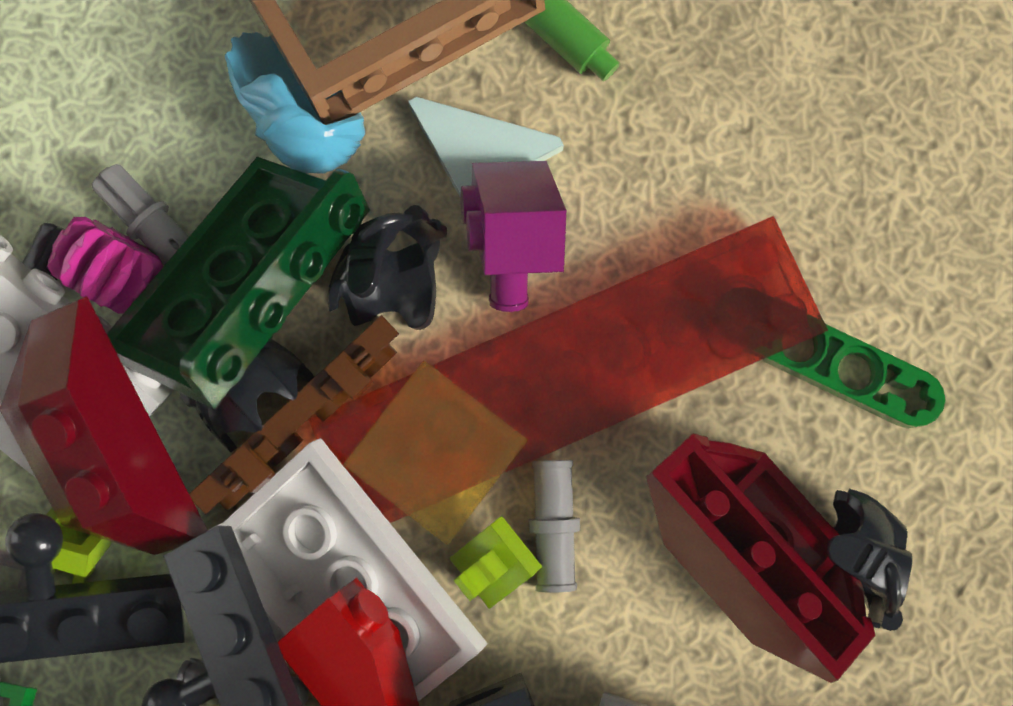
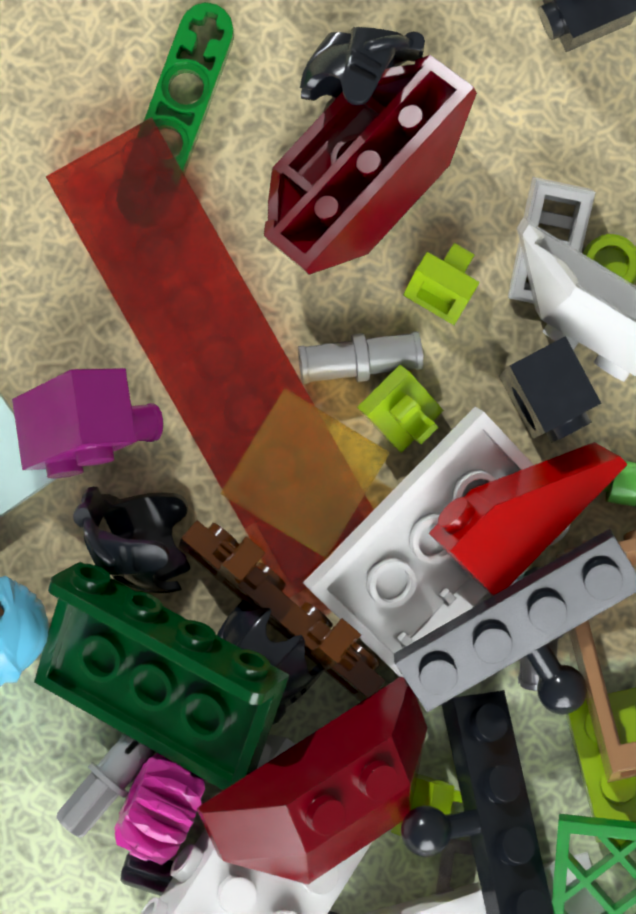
camera: 90 degrees left, 5 degrees up
(623, 623) = (442, 284): none -> lime tile

